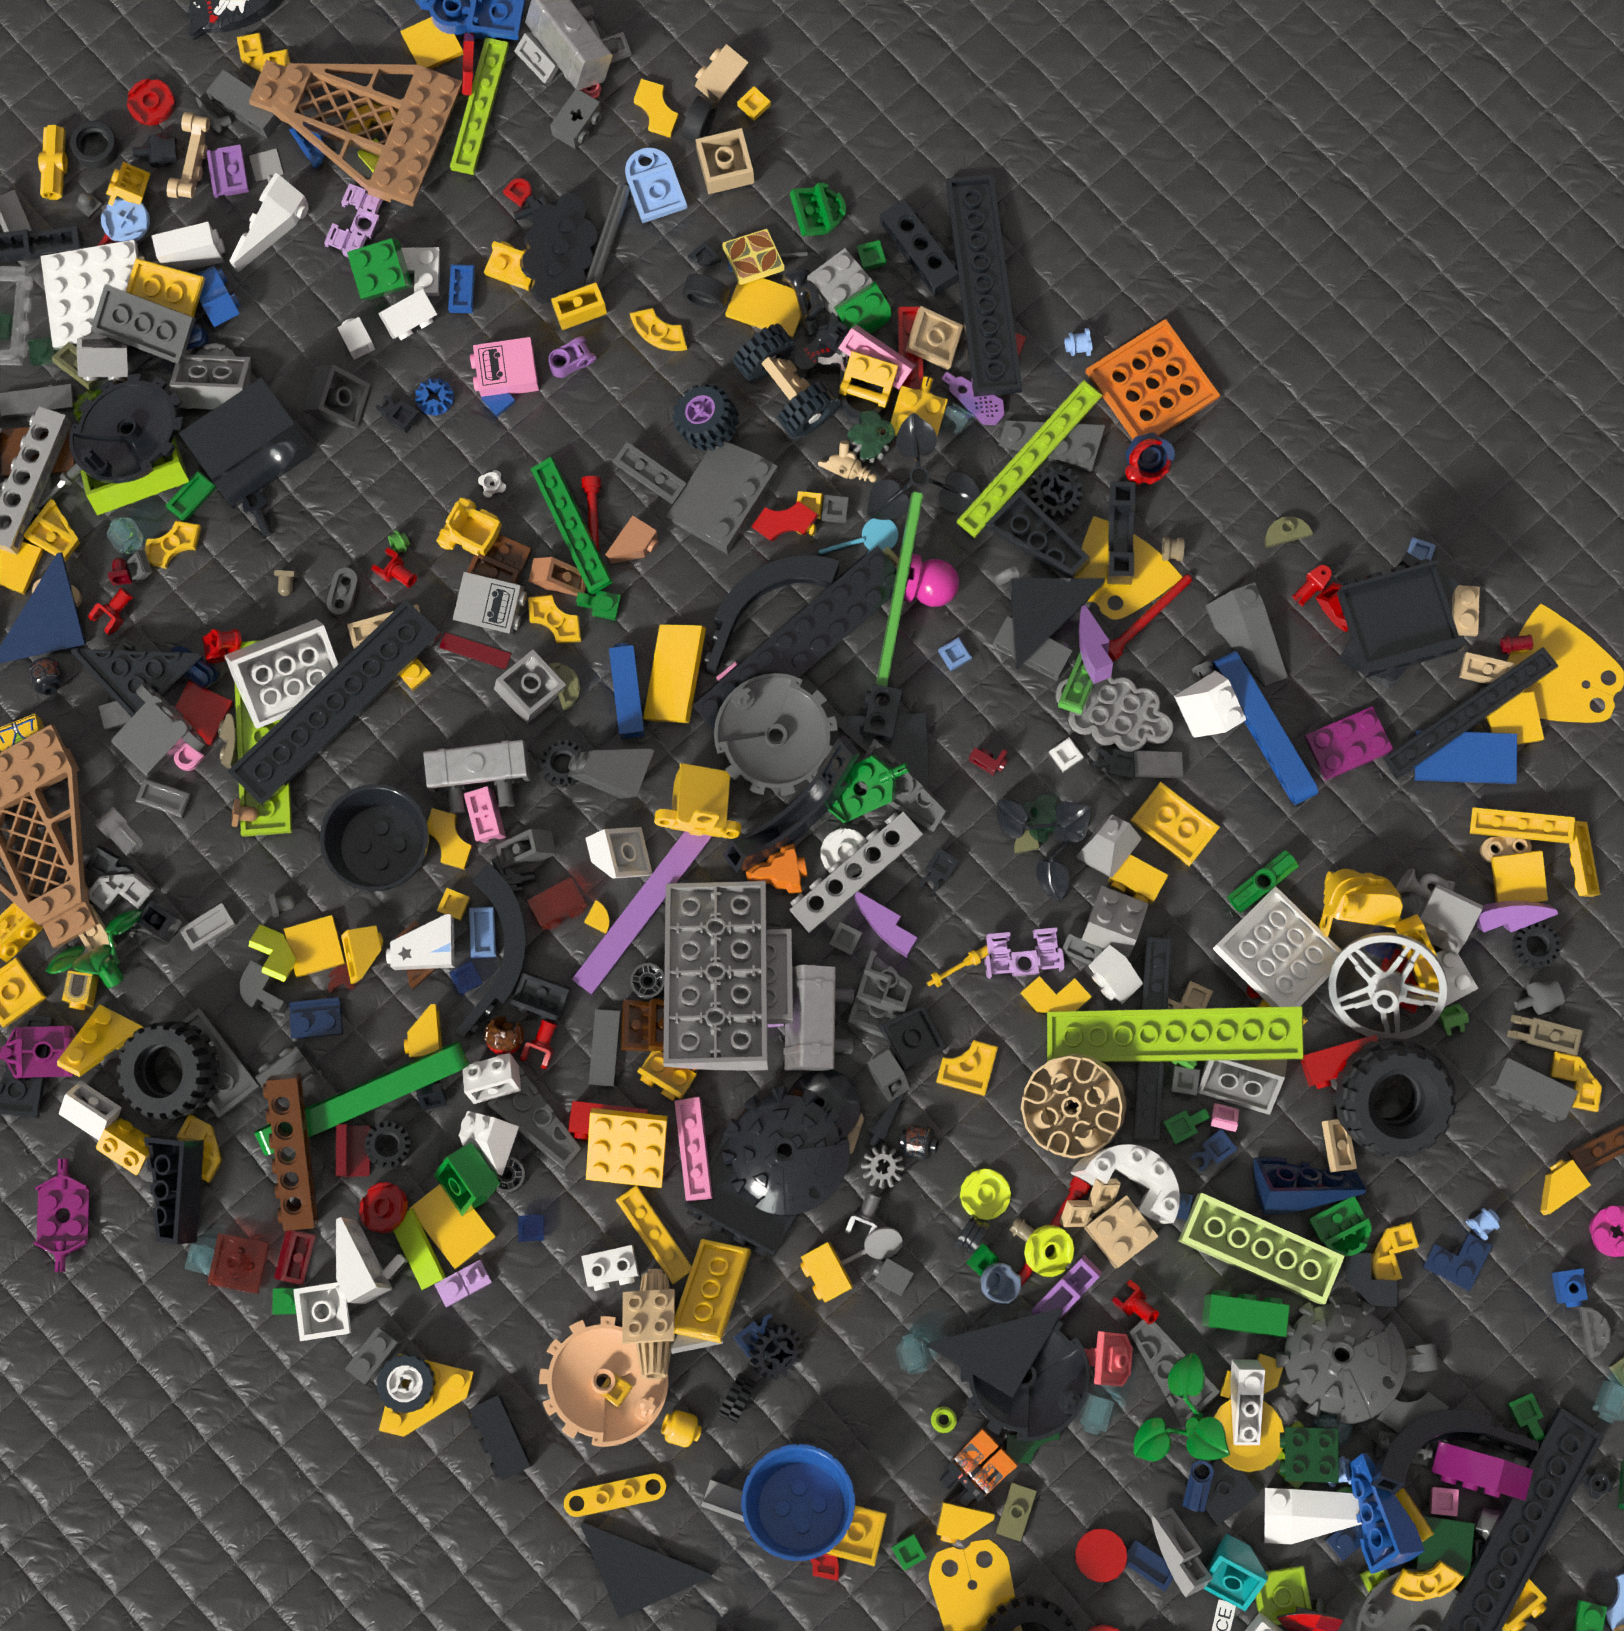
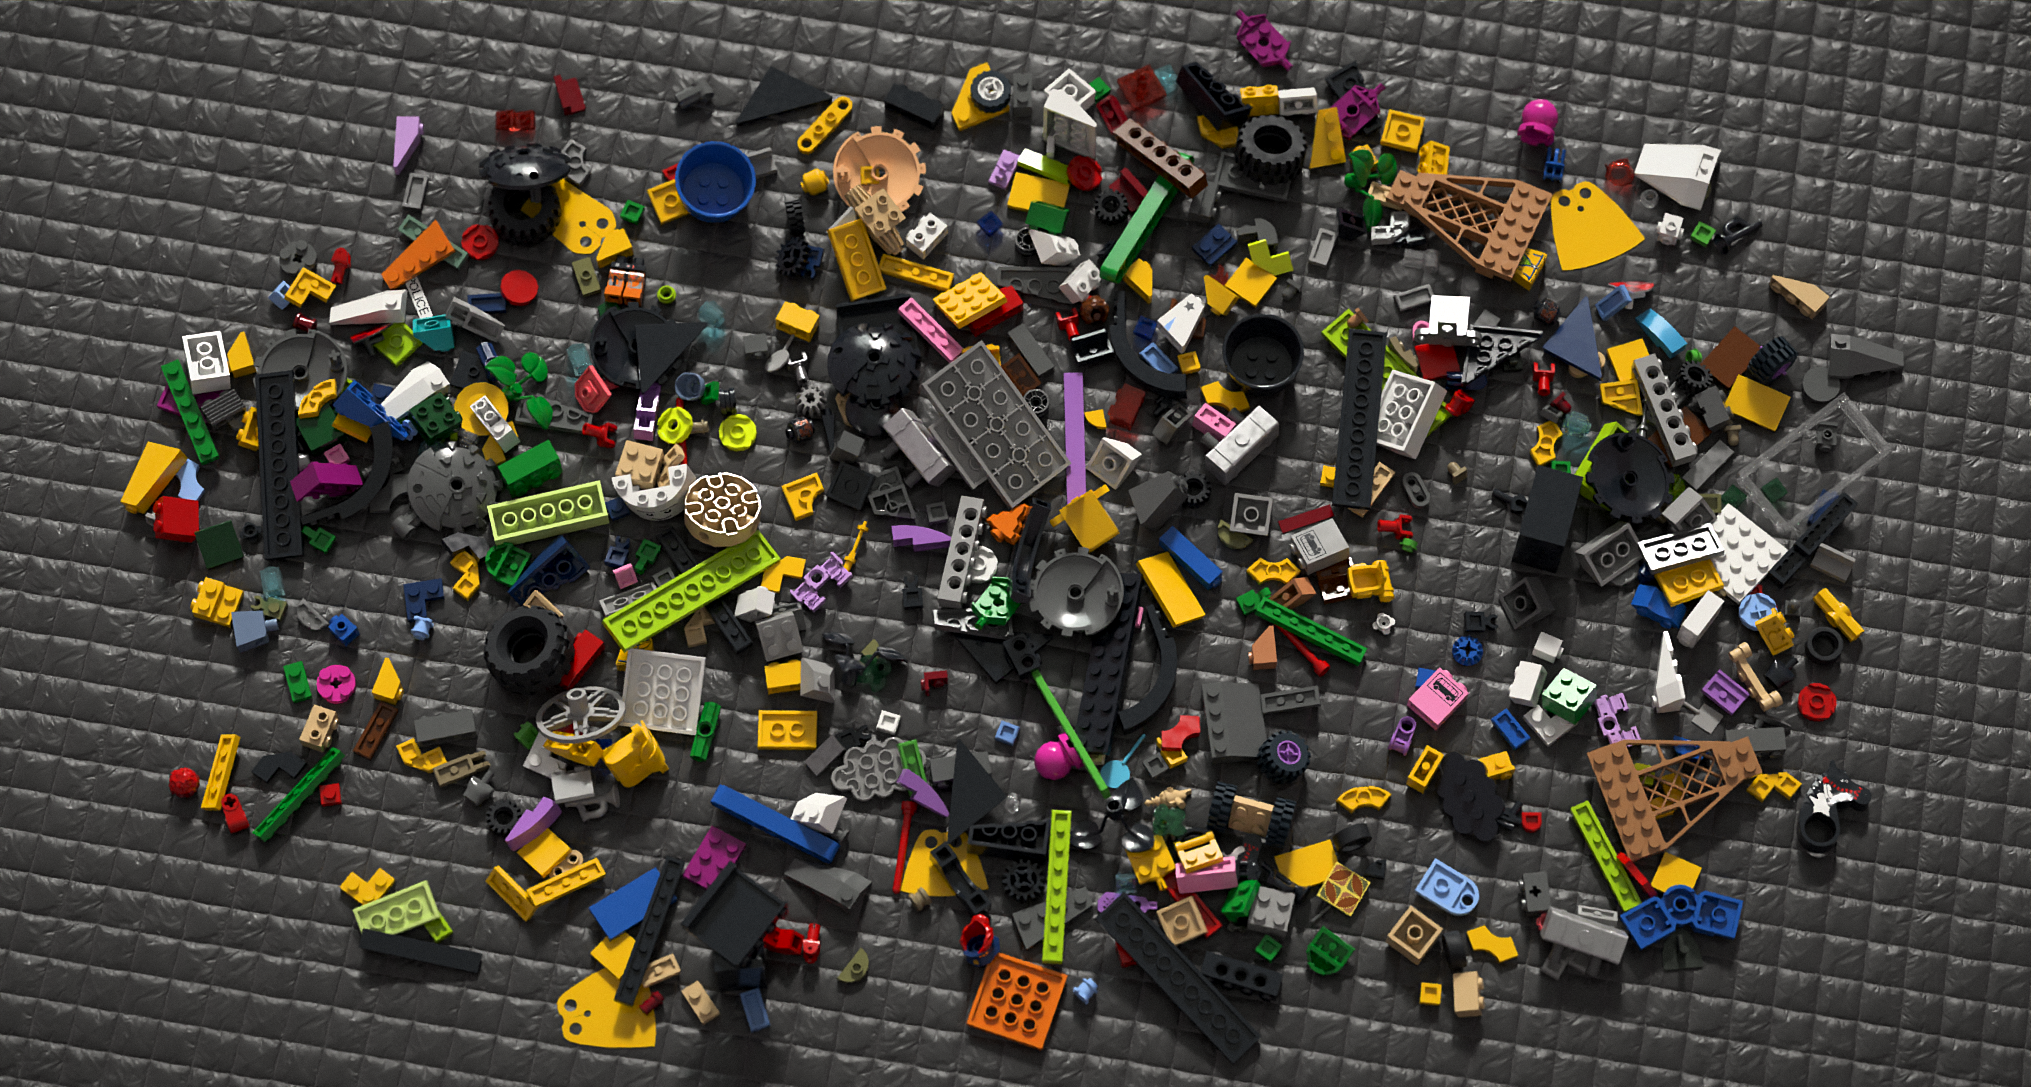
camera: 140 degrees right, 10 degrees down
(608, 235) = (1447, 831): dark grey axle -> none

